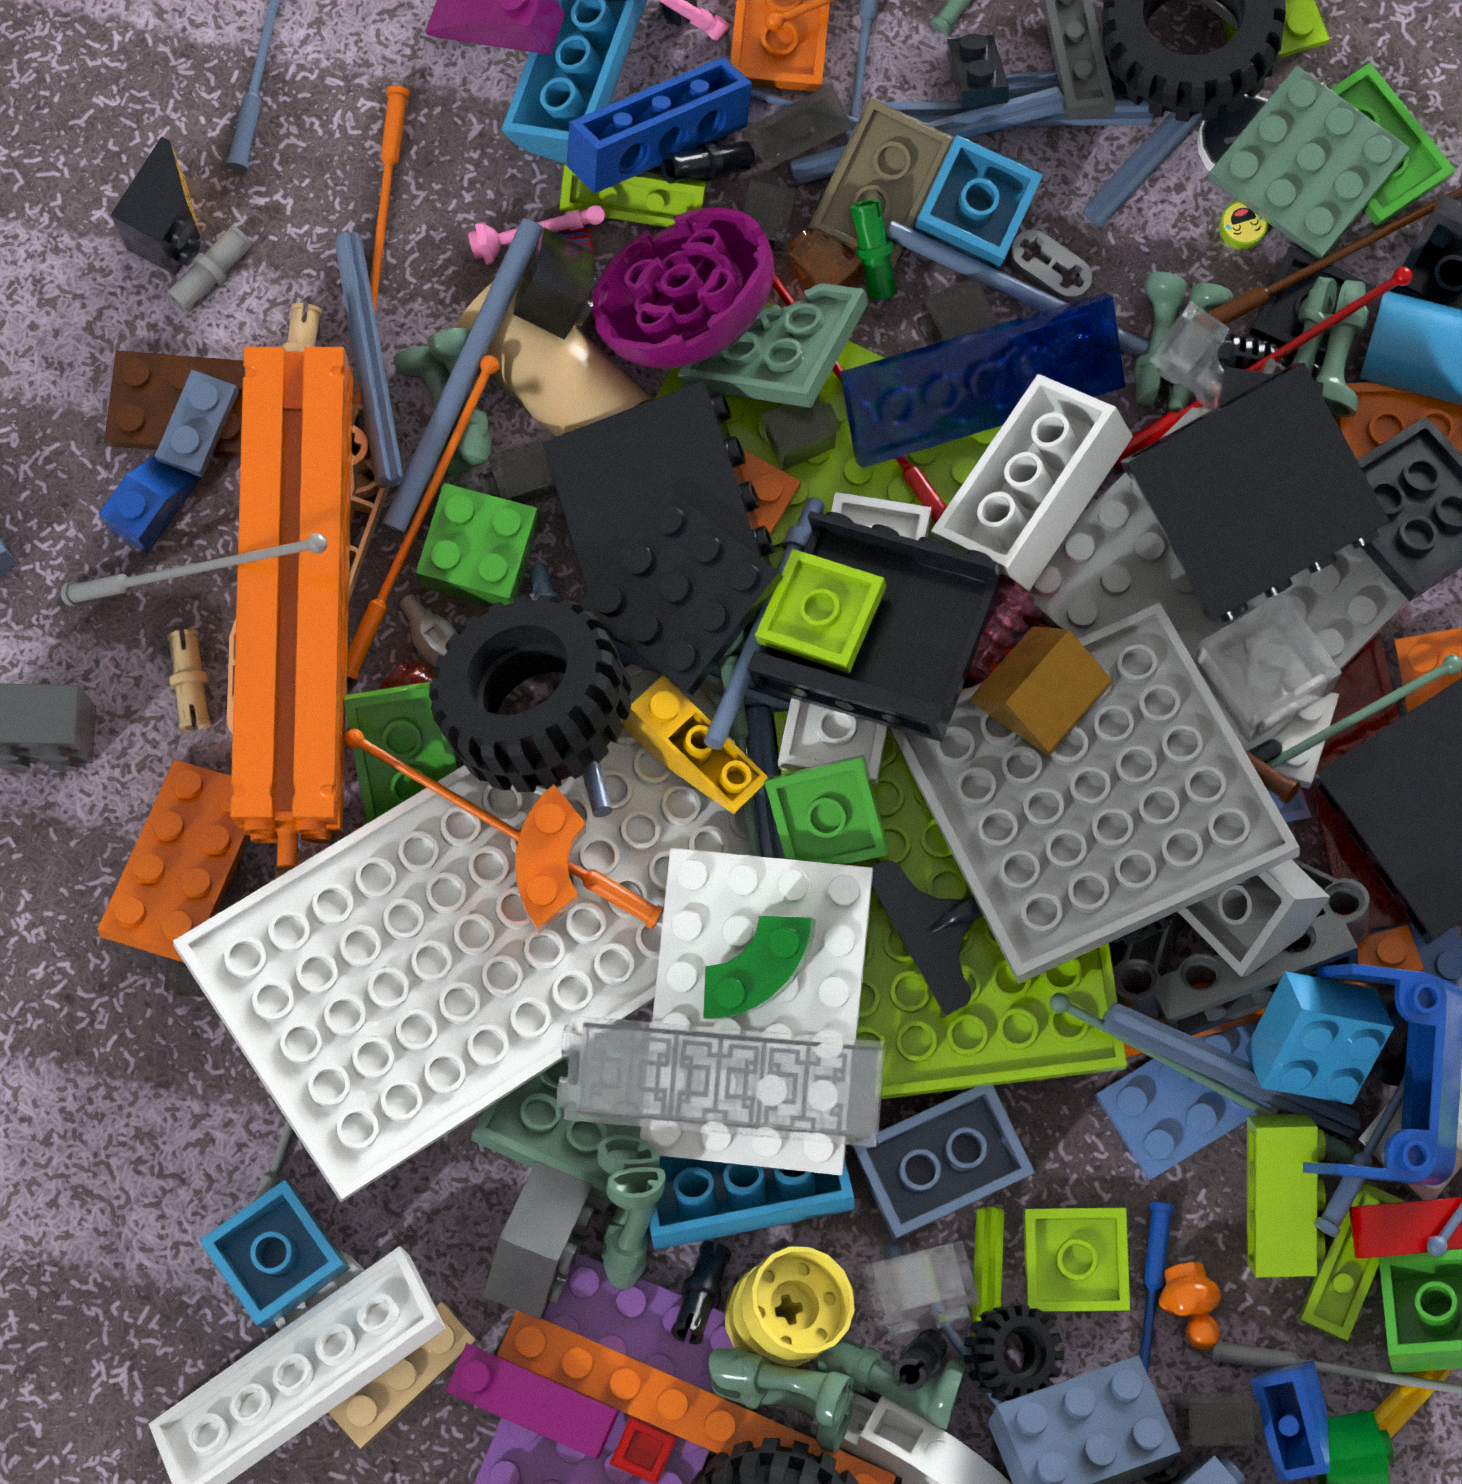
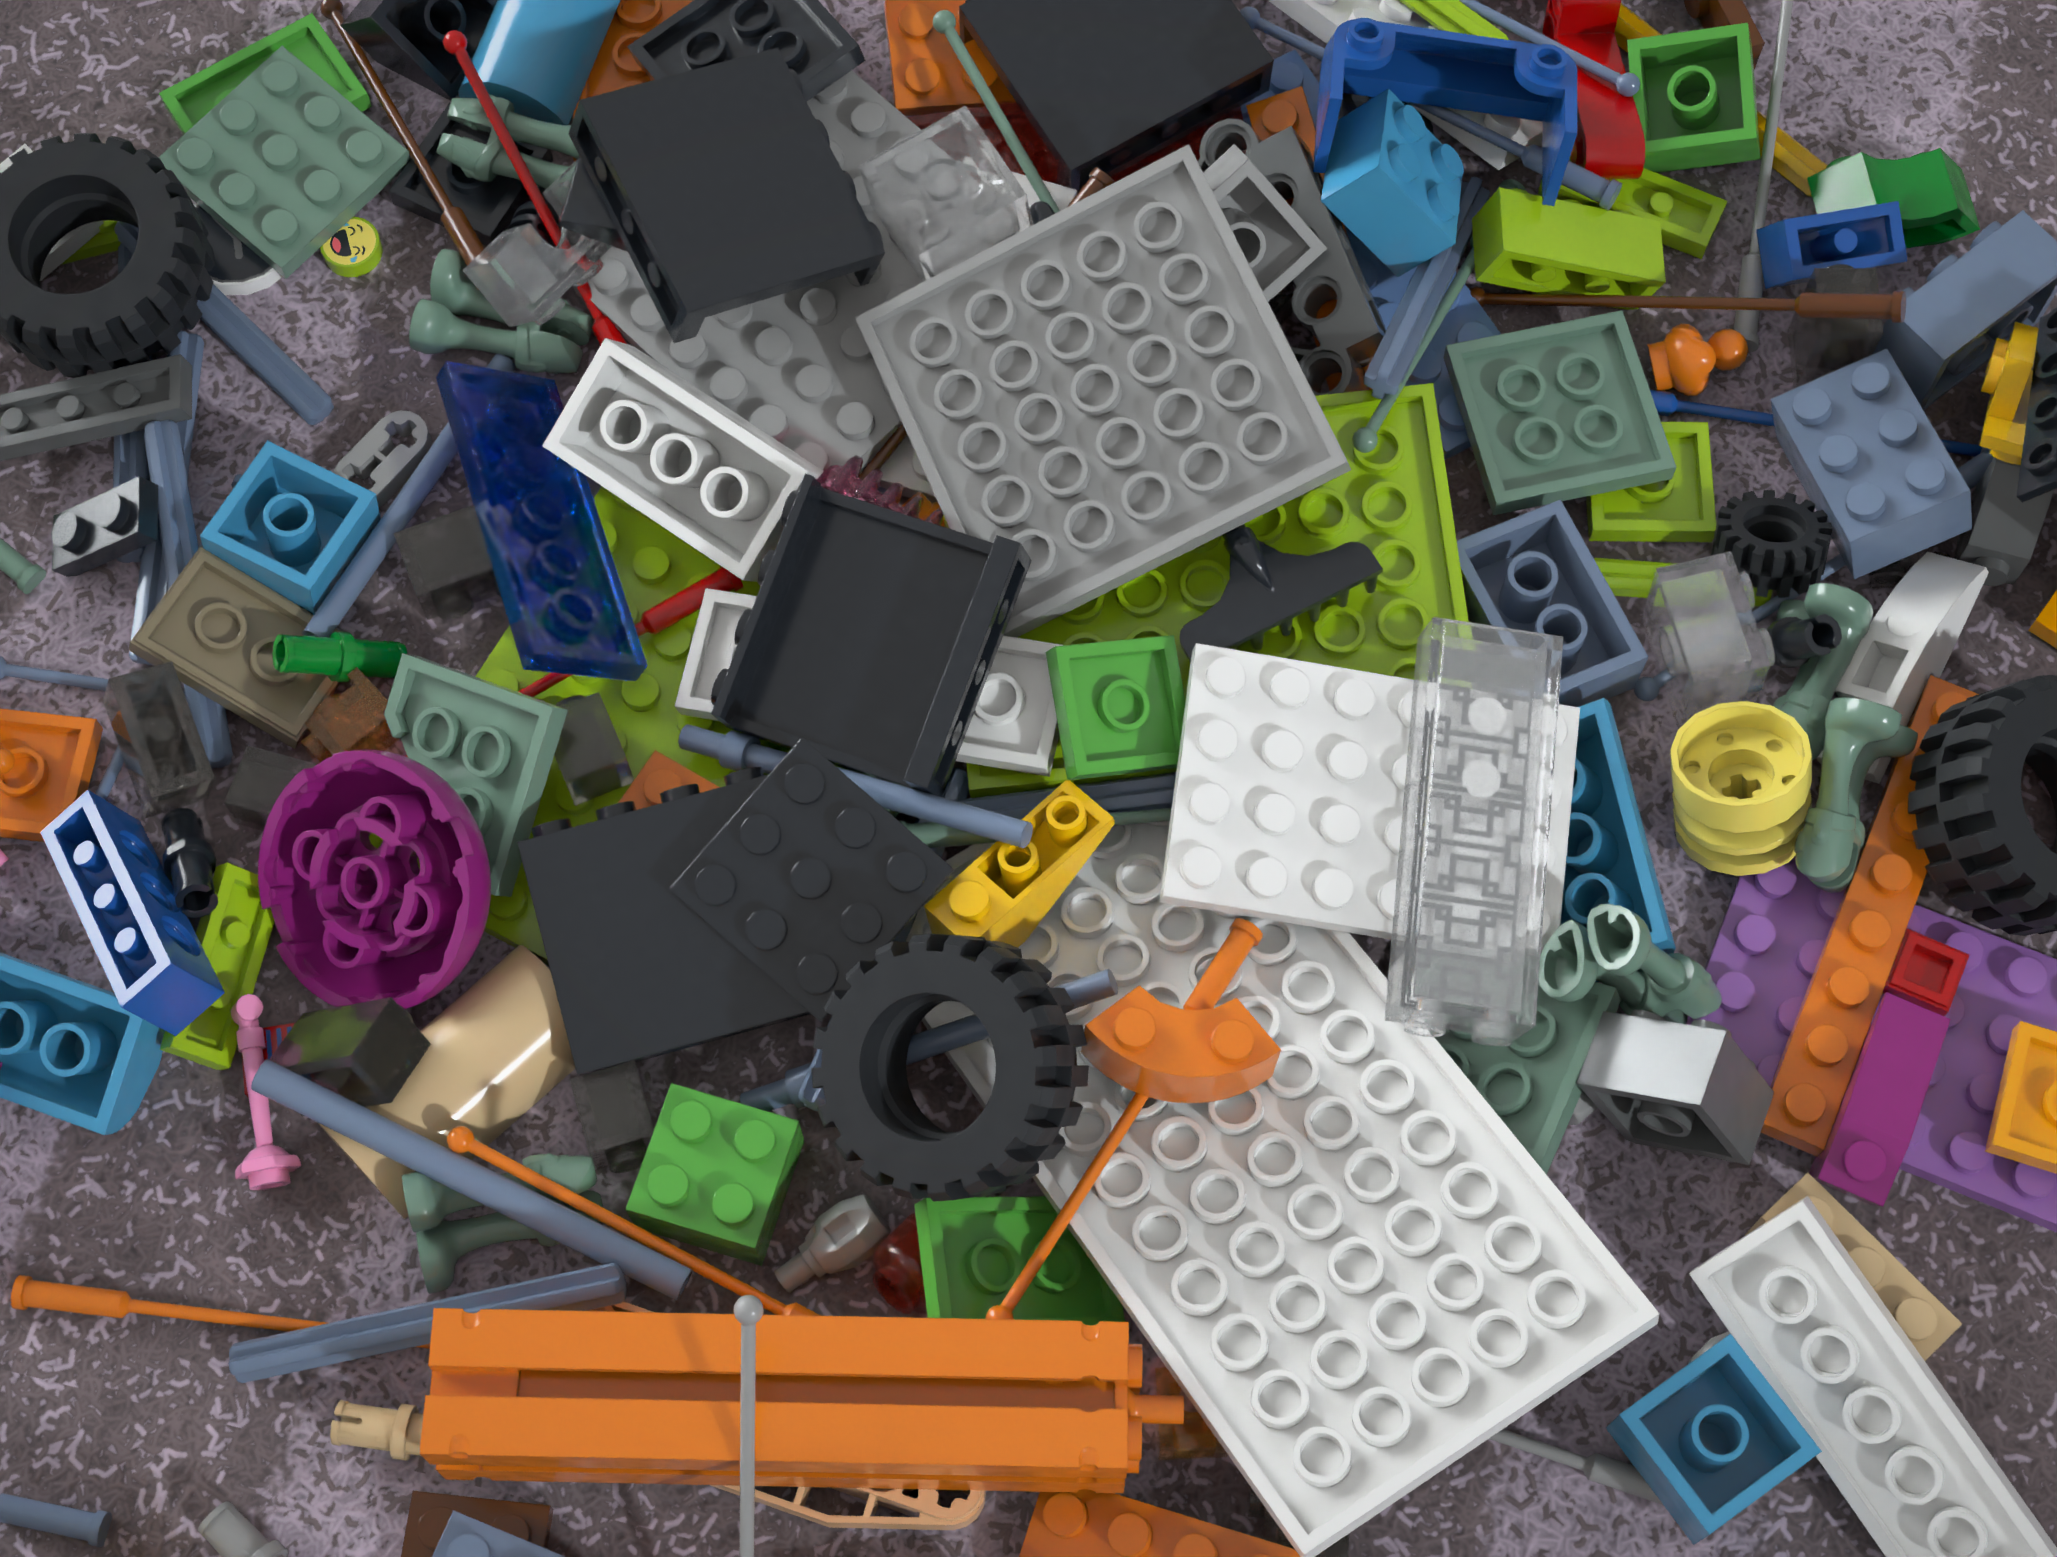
camera: 85 degrees left, 10 degrees down
(701, 1292) = (1724, 902): black pin -> none
(761, 970) = (1336, 770): green brick -> none
(821, 610) = (851, 699): lime plate -> none
(1043, 687) = (960, 445): pearl gold slope -> none
(1125, 1180) = (1558, 412): none -> sand green plate
(1212, 1380) = (1805, 305): none -> reddish brown piece

